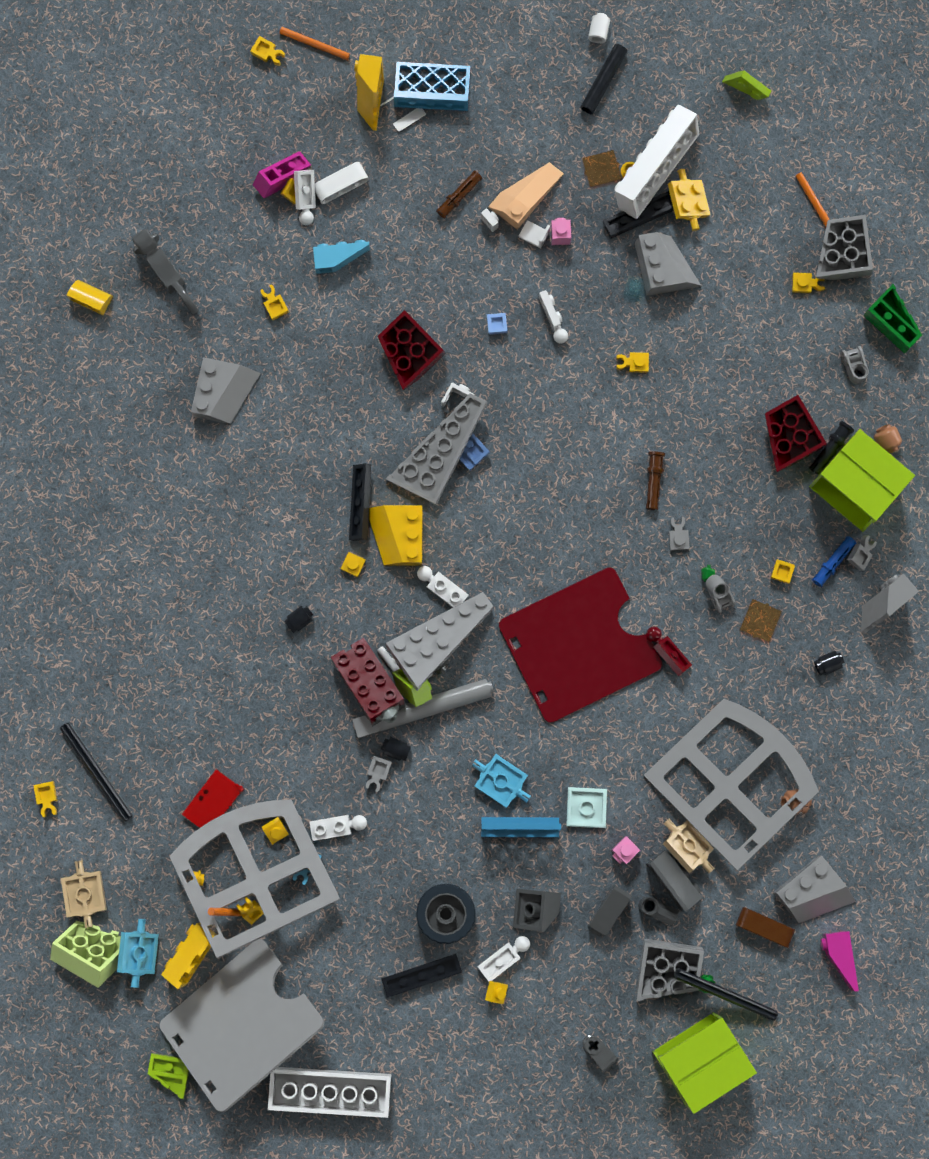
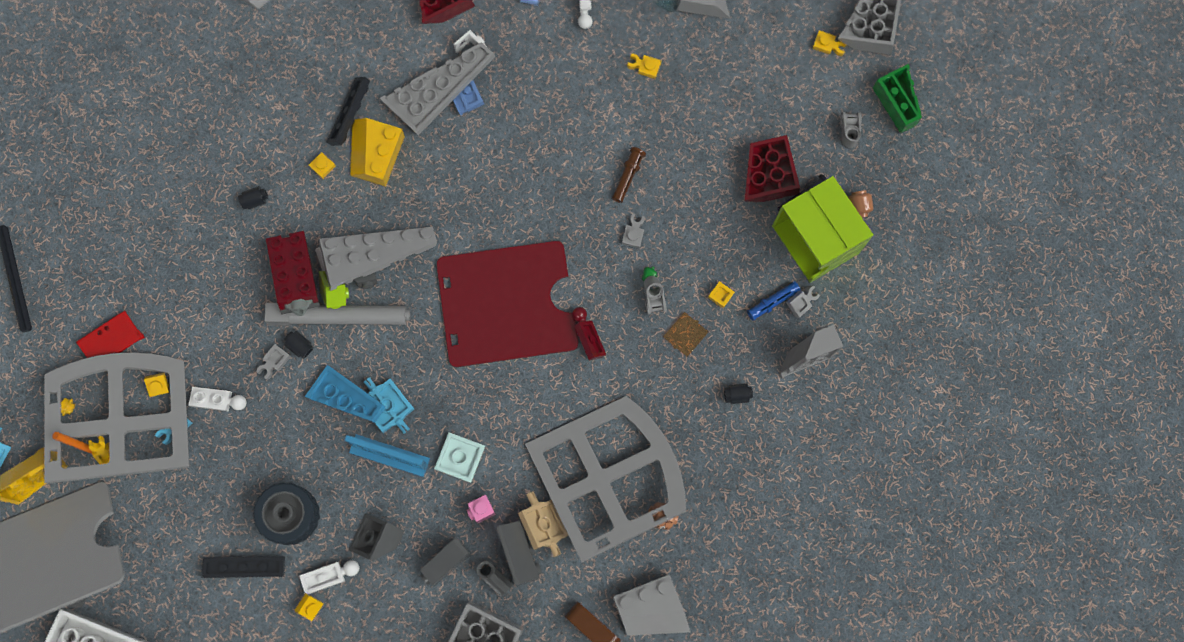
camera: 15 degrees right, 5 degrees down
(442, 586) = (396, 209): white plate -> none
(454, 783) = (342, 394): none -> dark azure wing

